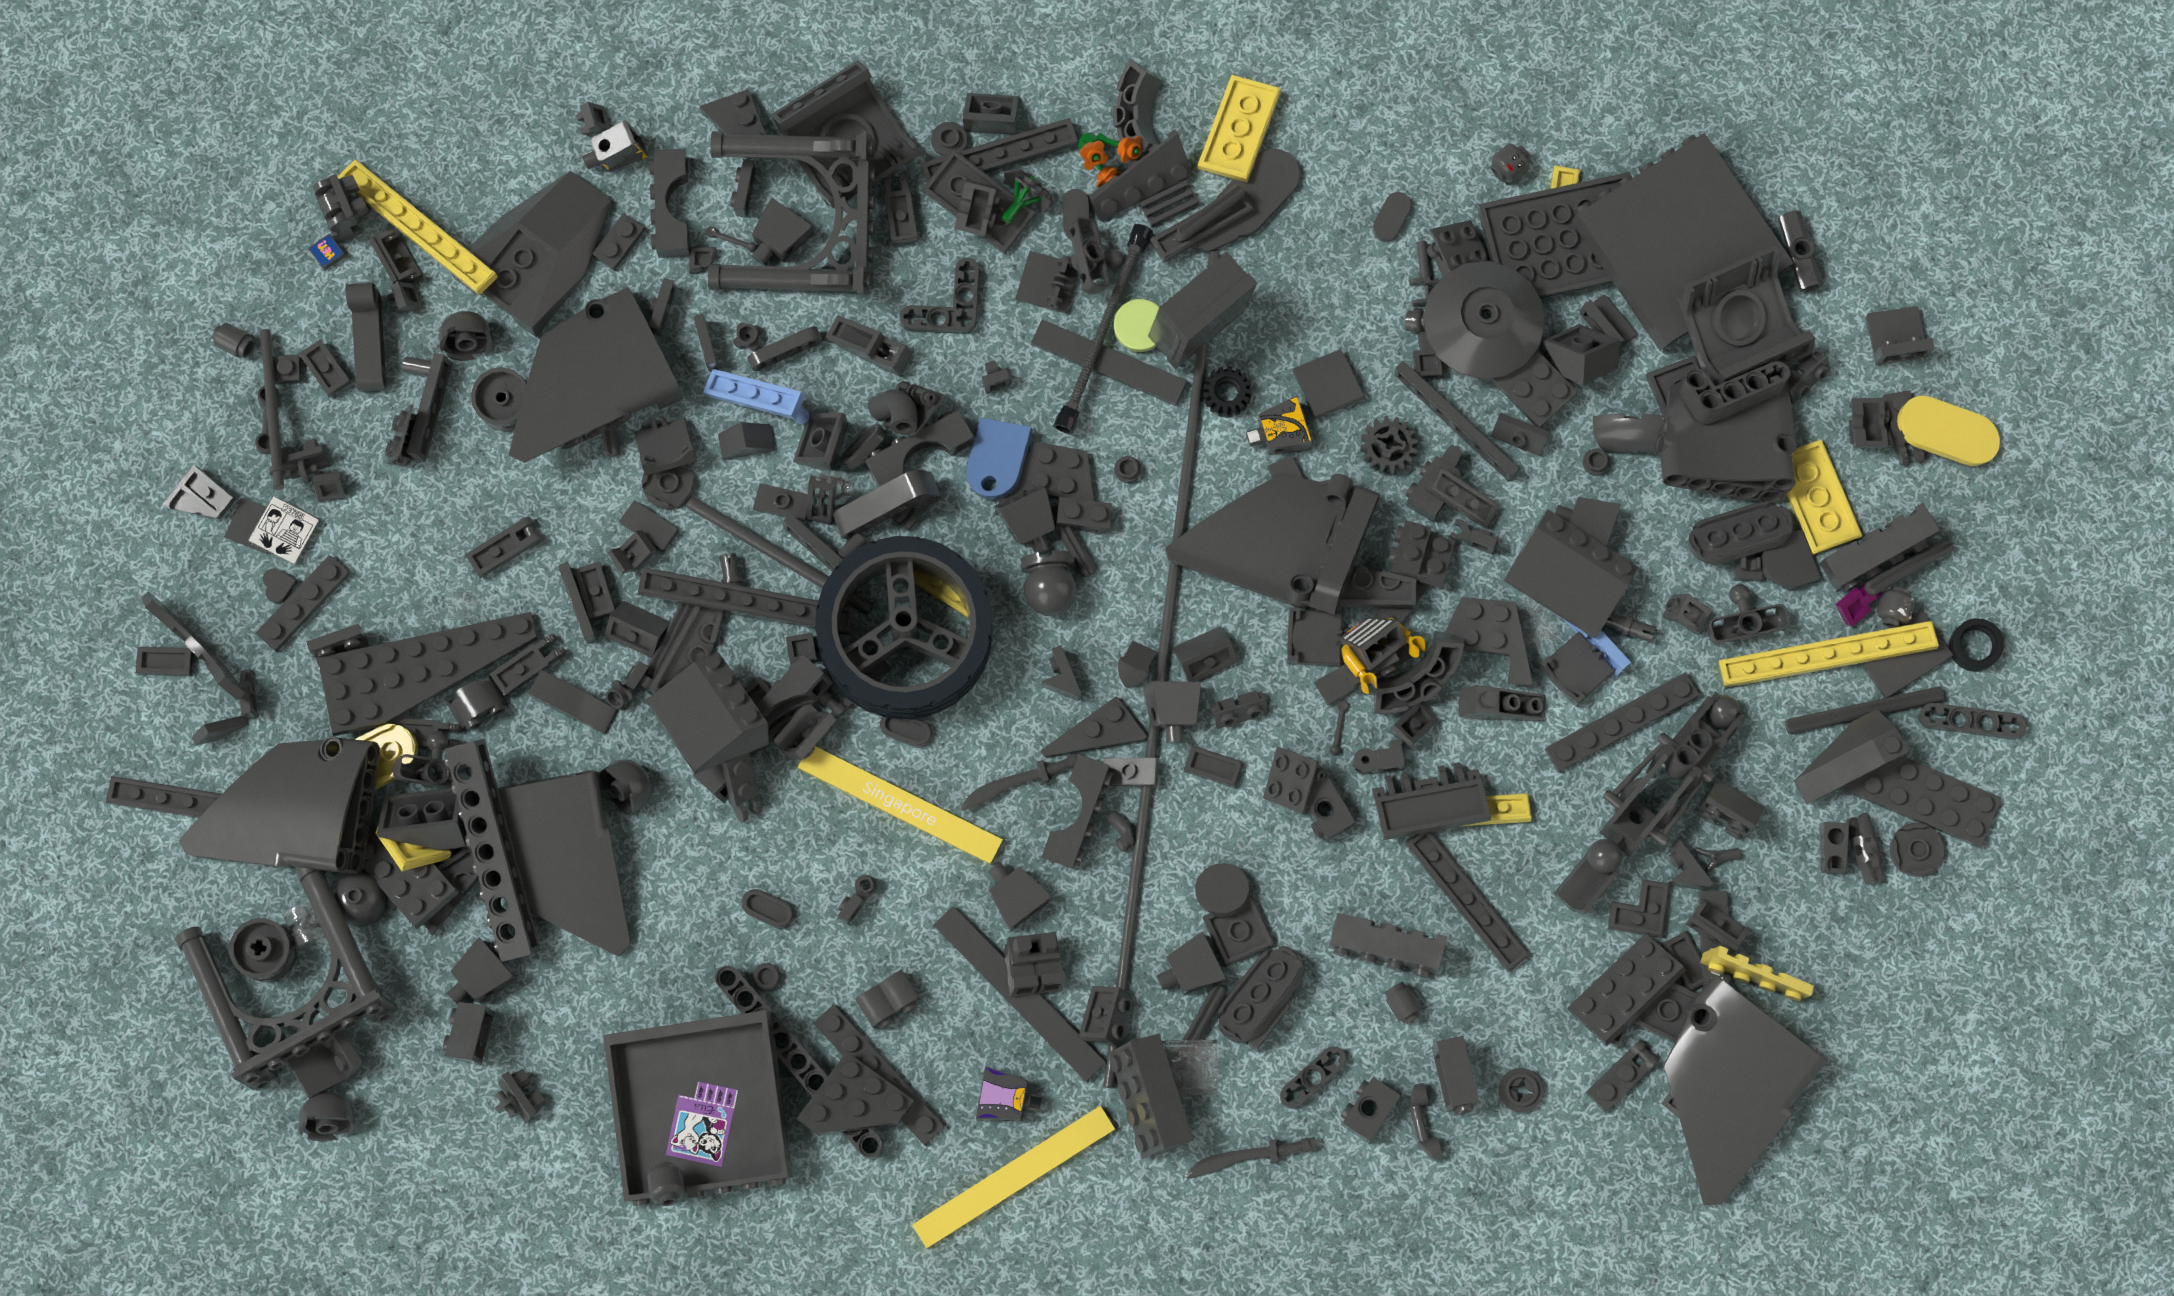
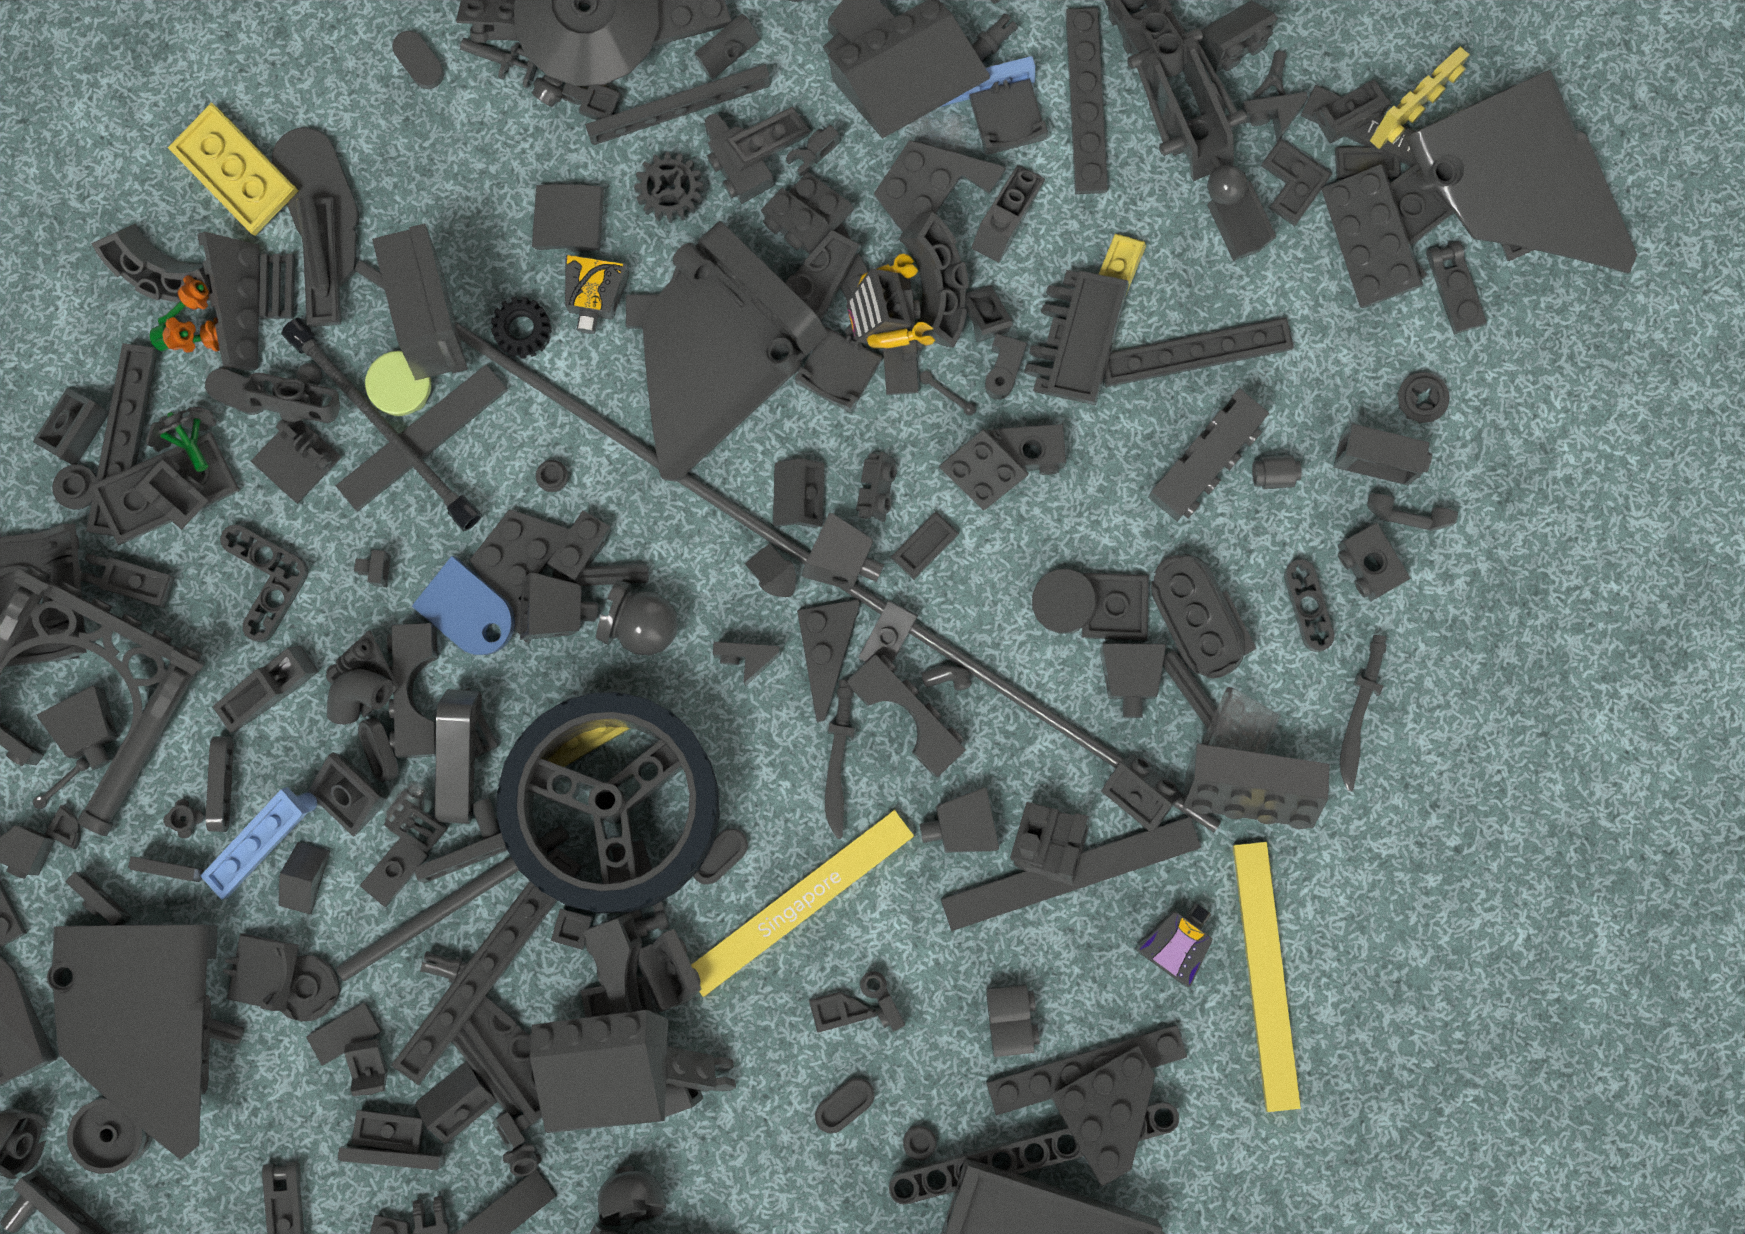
camera: 65 degrees left, 5 degrees up
(834, 870) = (838, 1010): none -> dark grey tile

